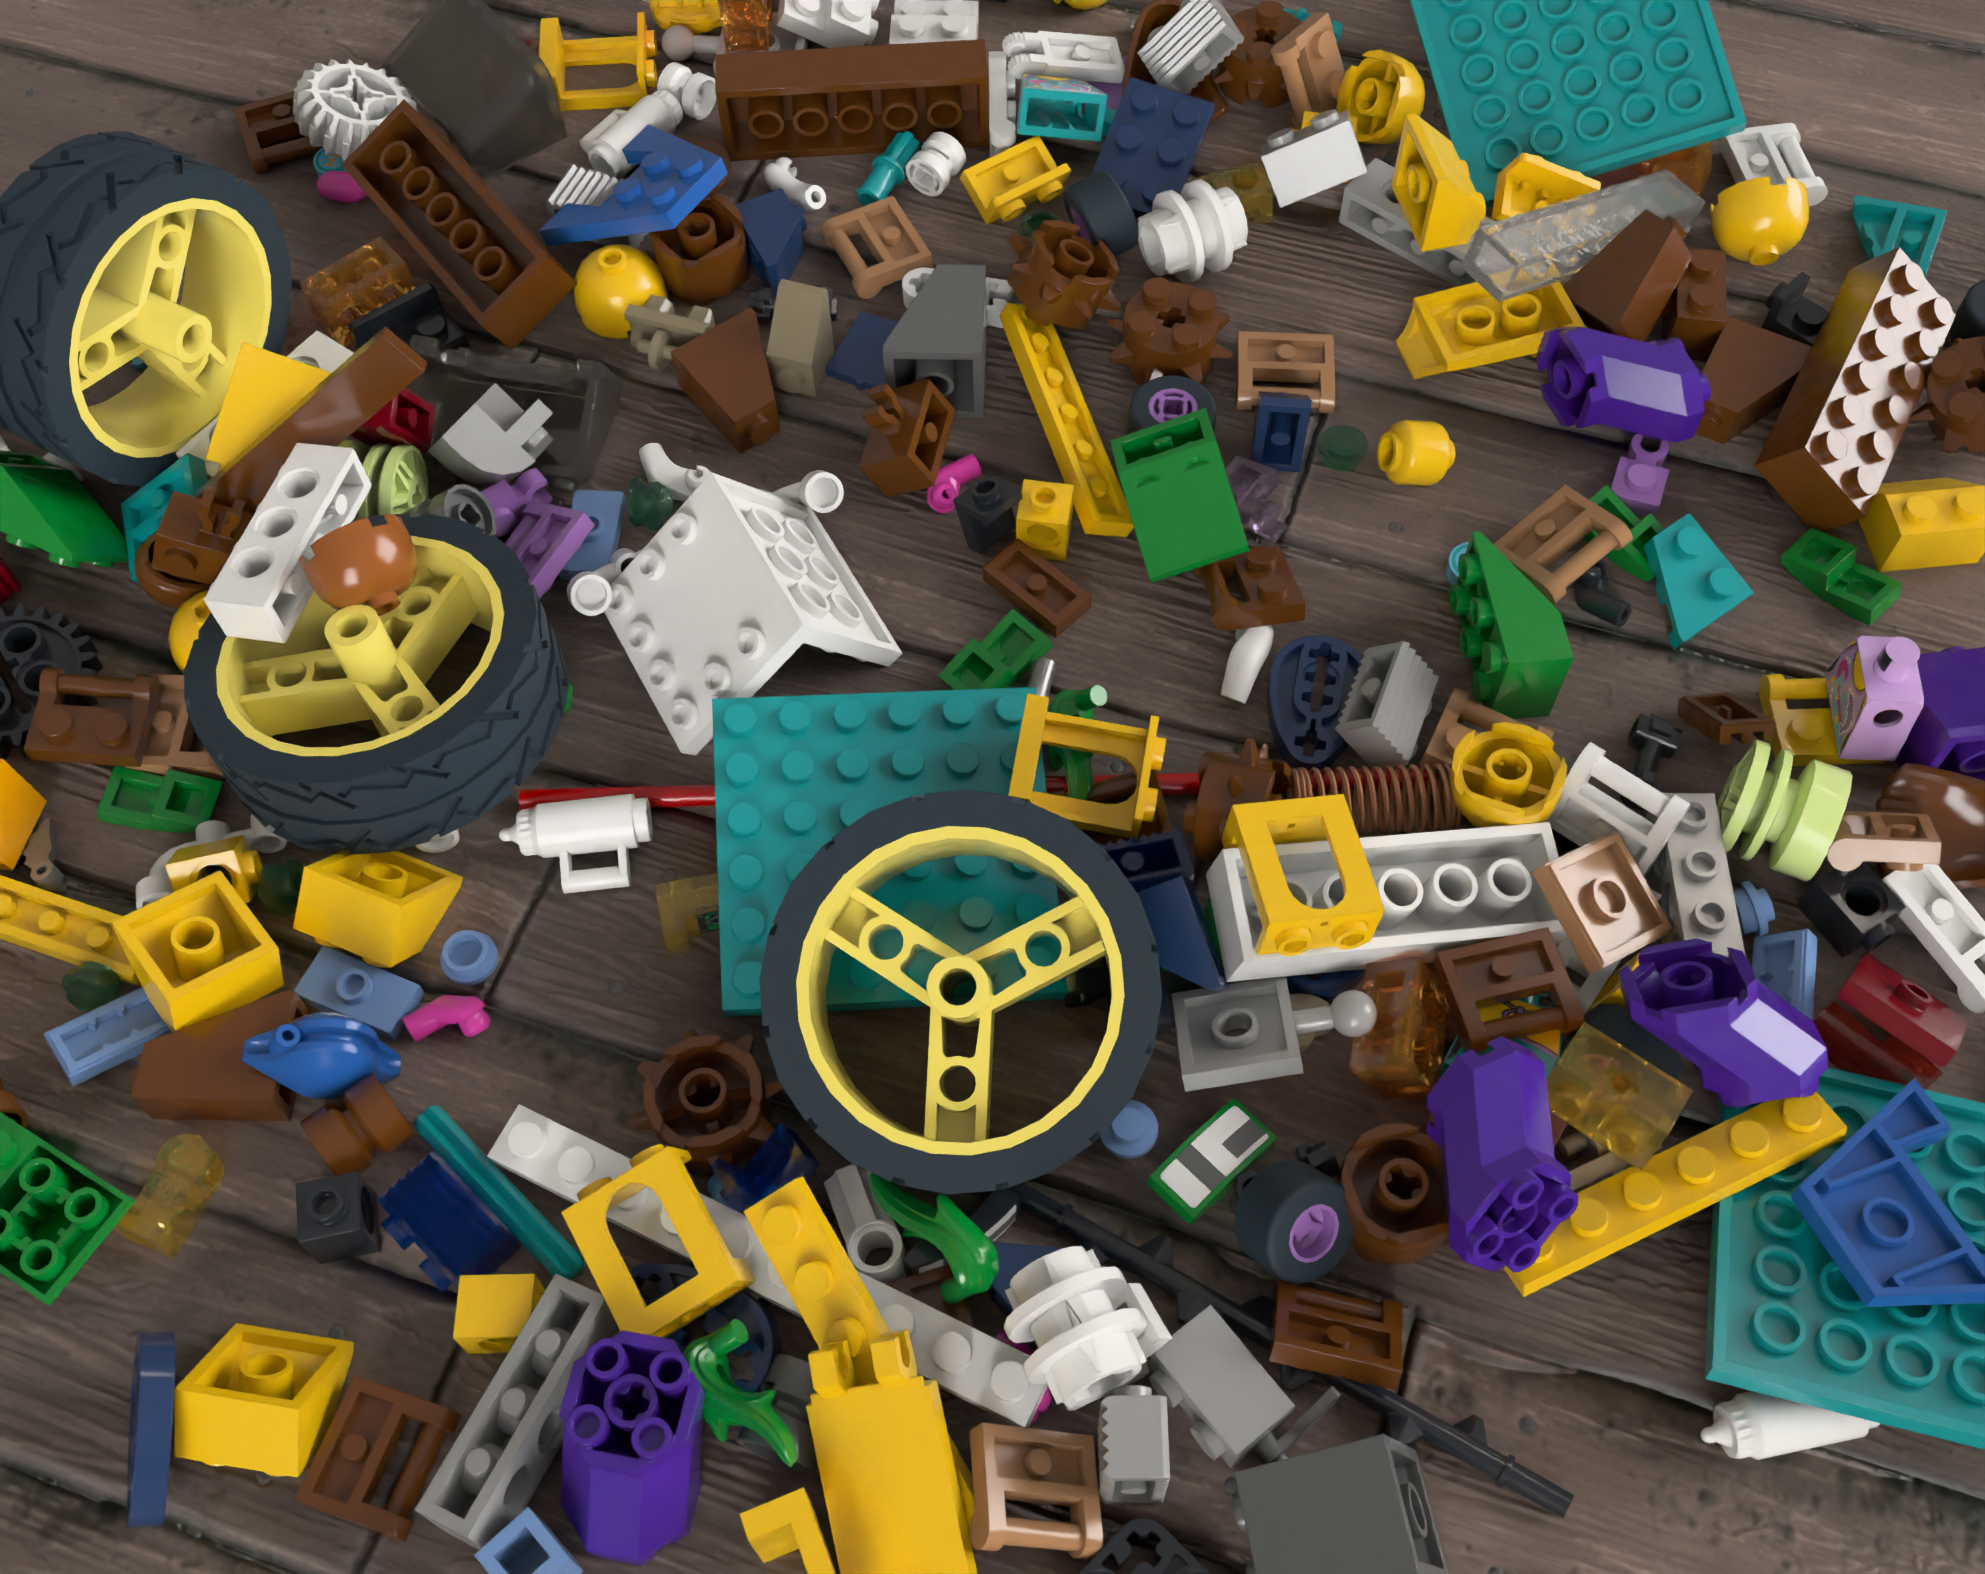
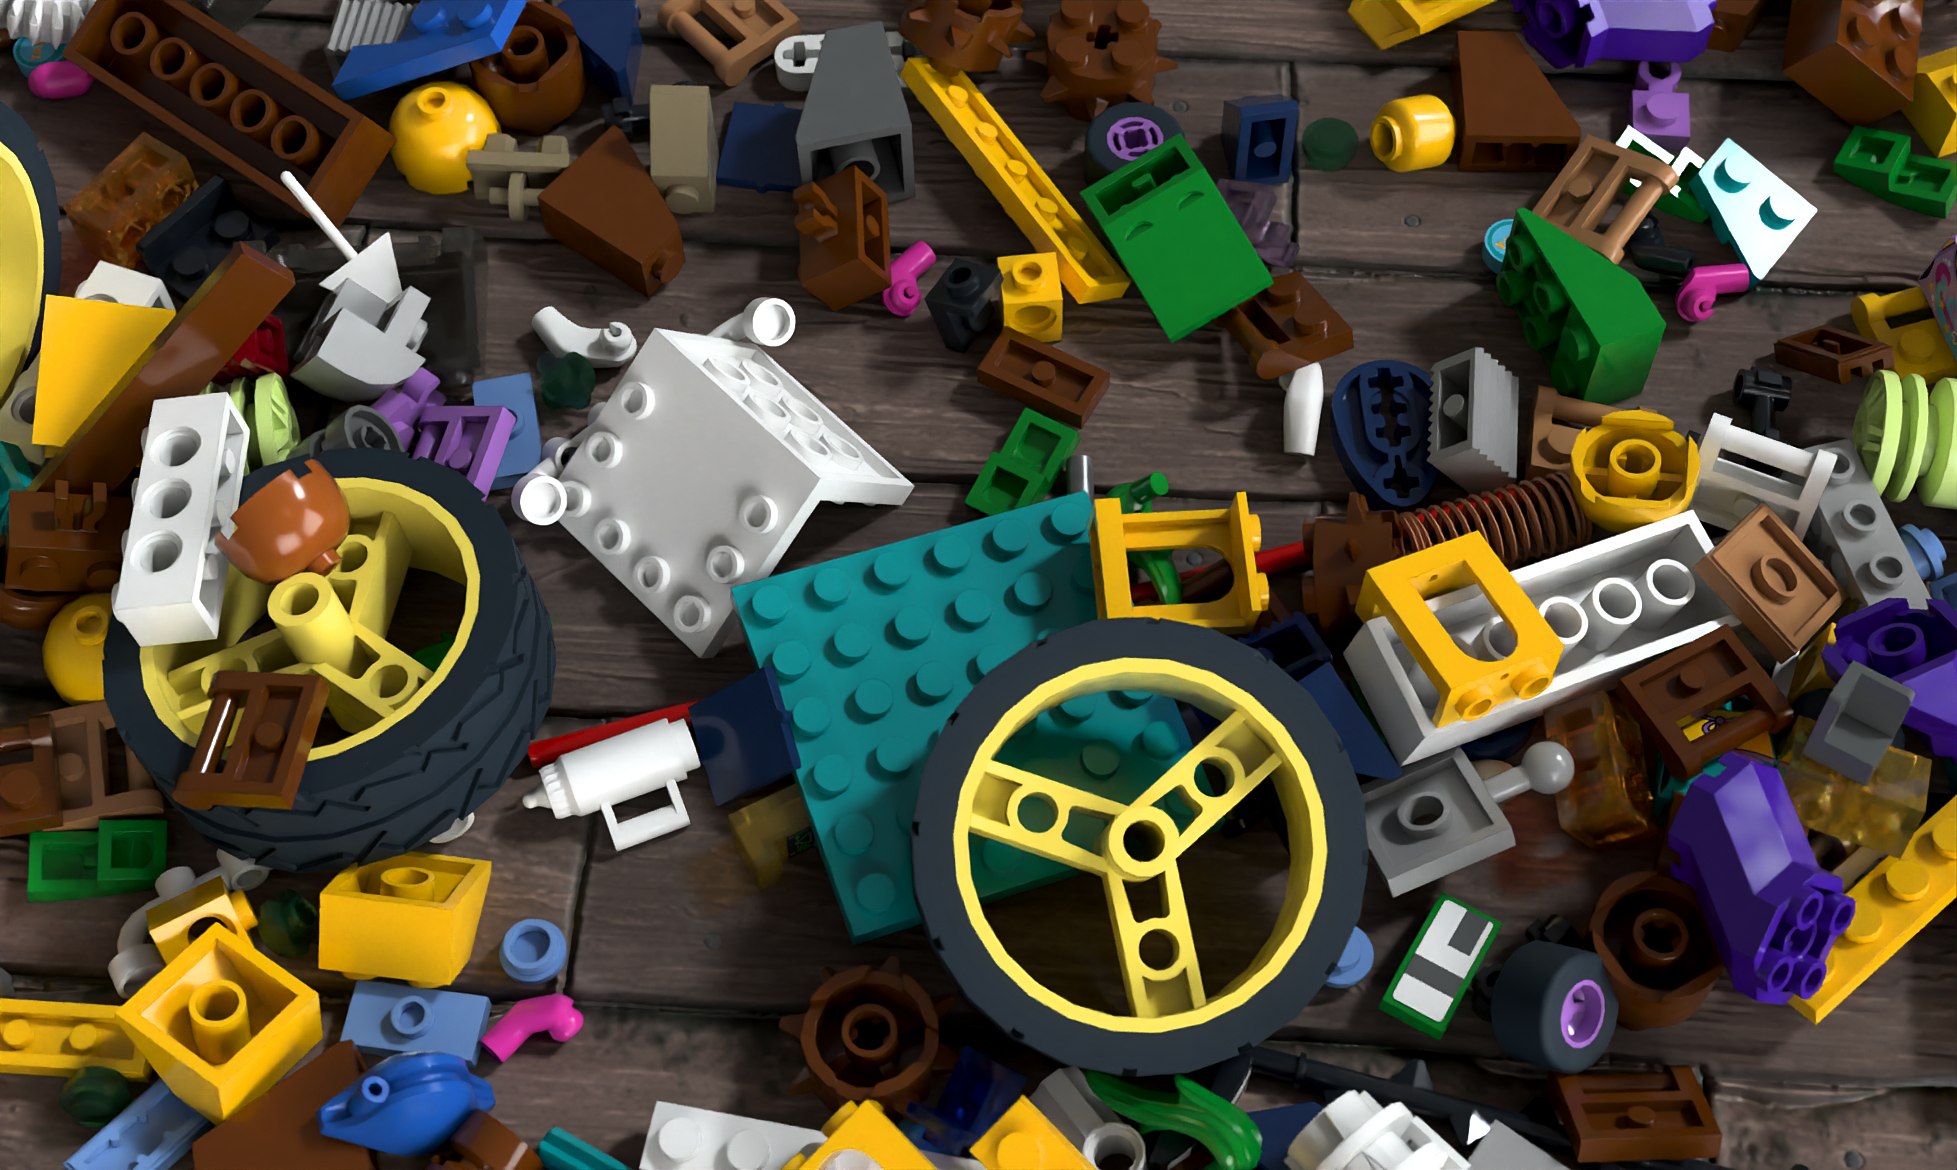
camera: 15 degrees left, 0 degrees up
(274, 729) = (268, 745): none -> reddish brown plate
(520, 382) = (372, 268): none -> white piece
(689, 824) = (745, 736): none -> dark blue piece
(1285, 359) = (1237, 57): medium nougat plate -> none
(1504, 449) = (1506, 108): none -> reddish brown slope
(1629, 1040) = (1858, 723): none -> dark grey panel
(1630, 635) = (1703, 285): none -> dark pink arm

